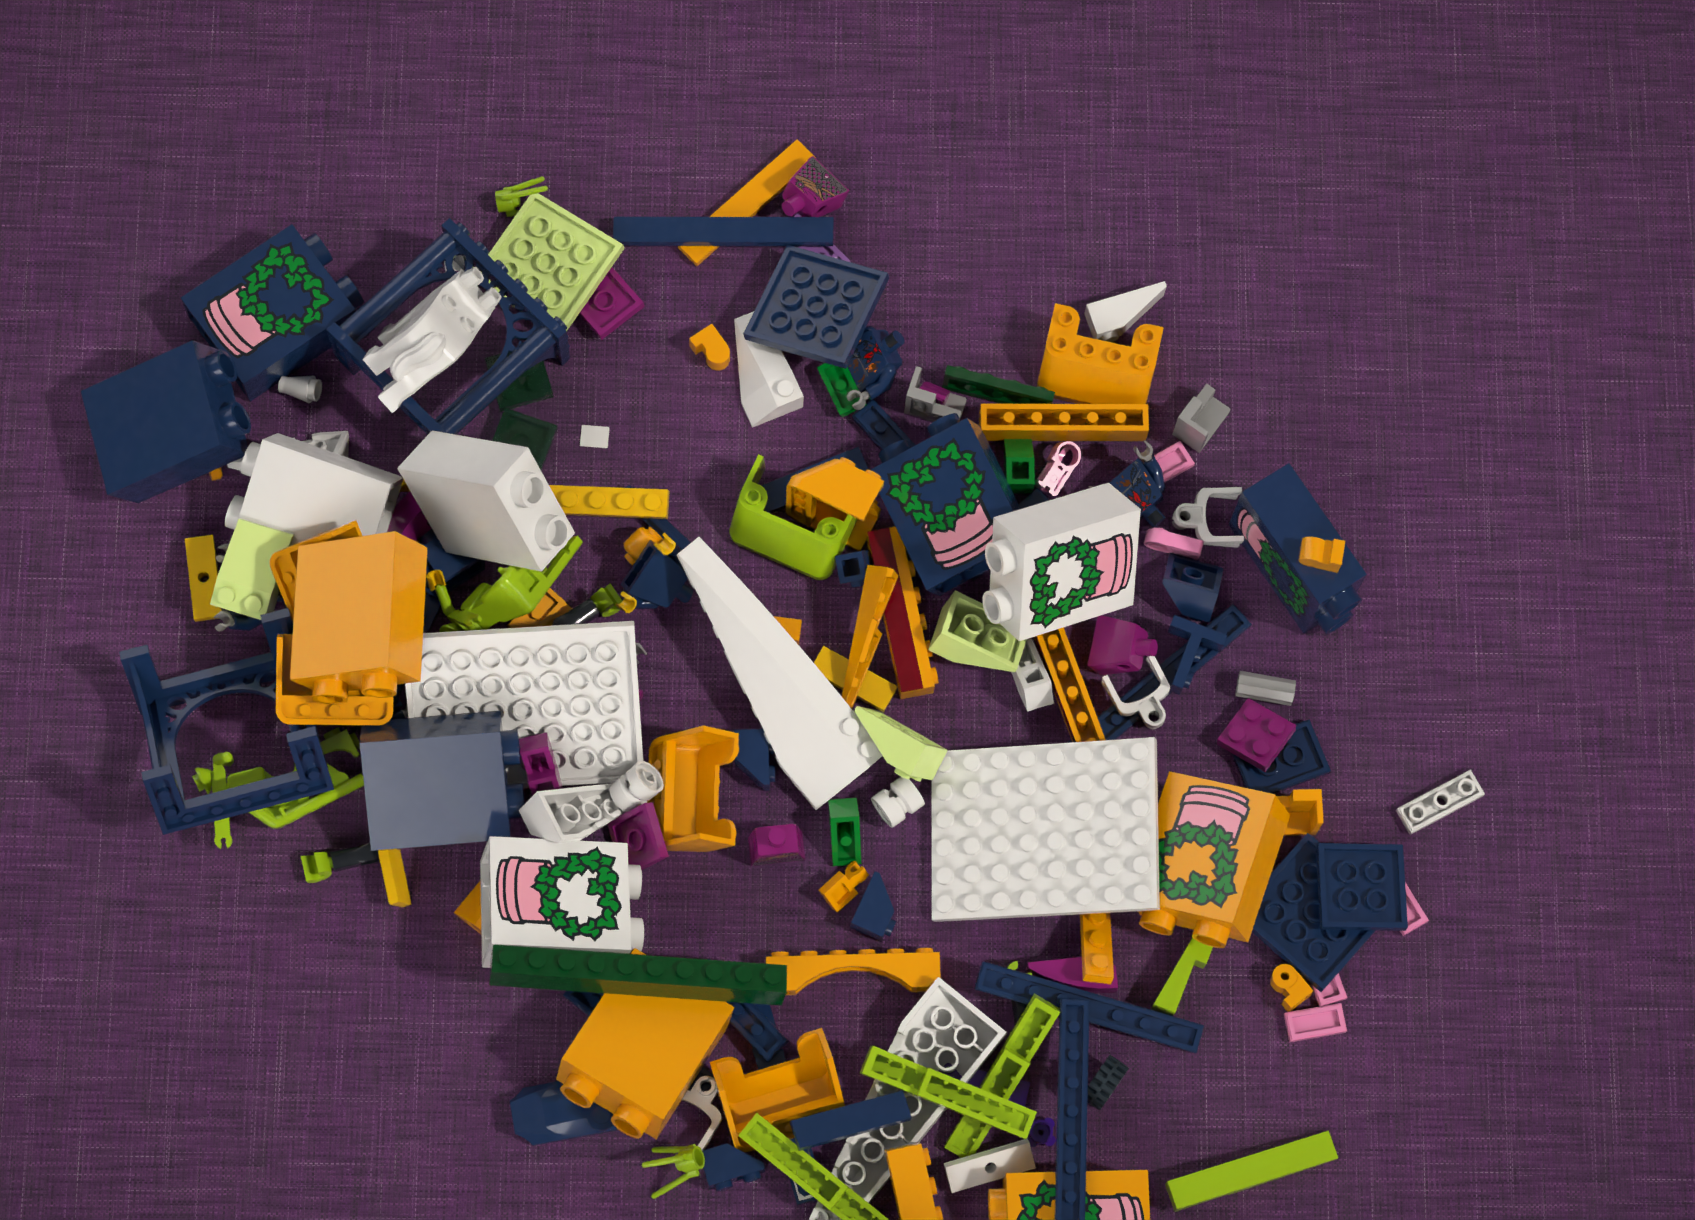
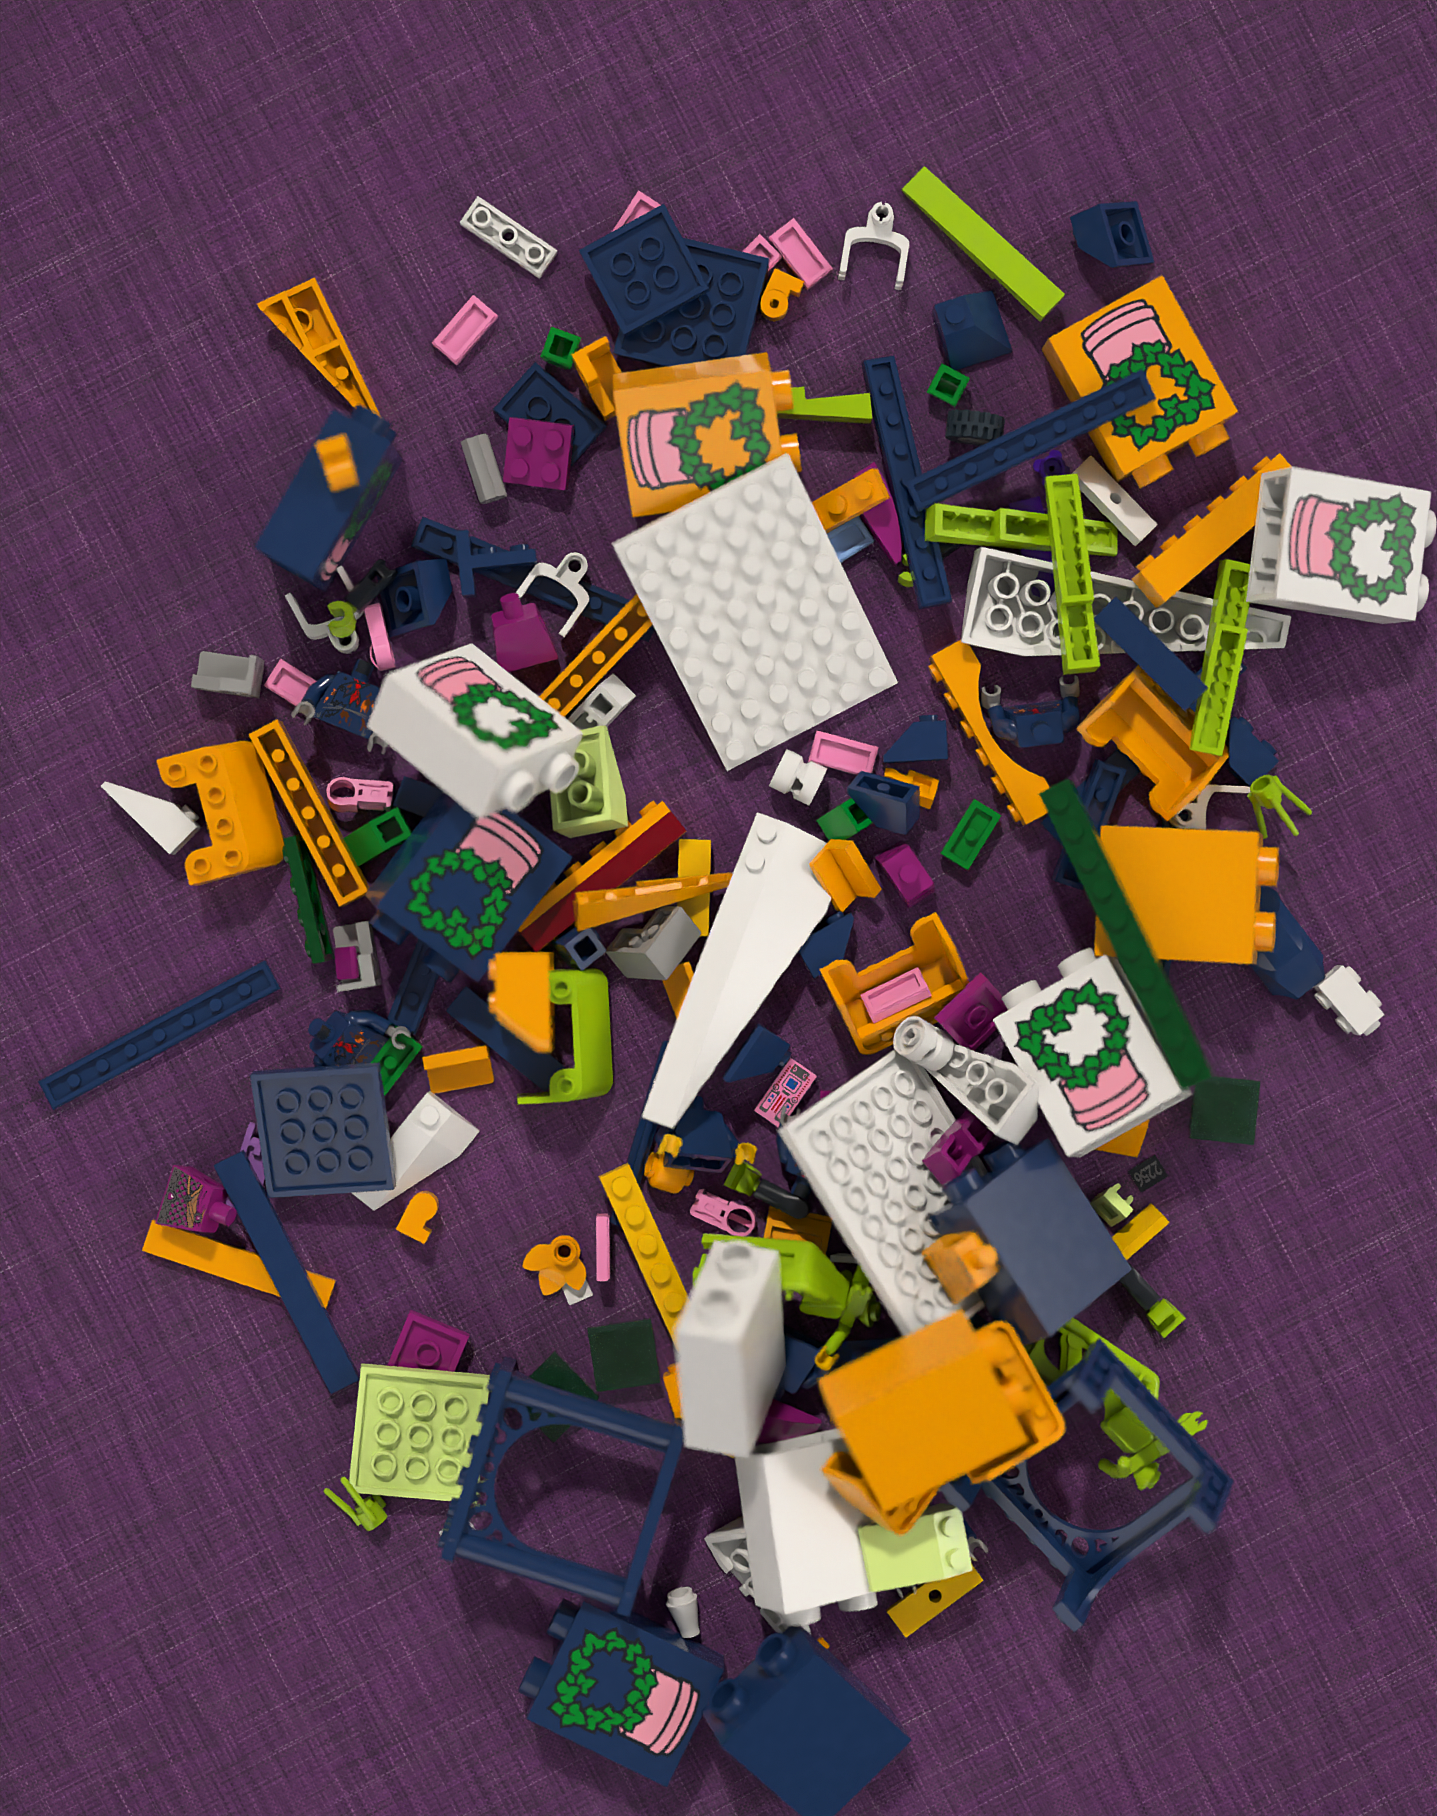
camera: 115 degrees left, 15 degrees up
(427, 869) = (1112, 1206): none -> yellowish green tile
(431, 335) = (581, 1504): white piece -> none
(435, 915) = (1148, 1173): none -> black sticker
(452, 709) = (961, 1263): none -> light orange torso
(453, 999) = (1225, 1110): none -> clear green plate
(489, 1141) = (1355, 1008): none -> white brick
(591, 568) = (717, 1211): none -> bright pink piece
(612, 468) = (603, 1247): none -> bright pink tile
(615, 428) = (554, 1268): none -> light orange plate
(657, 669) = (785, 1091): none -> bright pink tile
(685, 787) = (896, 995): none -> bright pink tile
(697, 659) = (758, 1055): none -> dark blue slope
(780, 913) = (970, 834): none -> green plate
(803, 793) = (844, 873): none -> light orange panel
(808, 434) = (459, 1069): none -> light orange panel
(823, 626) = (655, 948): none -> light grey panel
(842, 856) = (886, 801): none -> dark blue slope
(842, 1010) = (1035, 722): none -> dark blue torso
(897, 849) = (842, 753): none -> bright pink tile
(901, 746) = (742, 803): yellowish green slope -> none
(952, 234) = (159, 1034): none -> dark blue tile
(1065, 936) = (850, 538): none -> light blue tile
(1150, 1082) = (948, 385): none -> green brick
(1186, 1125) = (971, 329): none -> dark blue slope
(1211, 540) = (359, 599): none -> black piece
(1302, 1092) = (877, 232): none -> white piece
(1334, 794) = (559, 348): none -> green brick
(1382, 731) = (465, 330): none -> bright pink tile
(1443, 615) = (311, 327): none -> light orange wedge

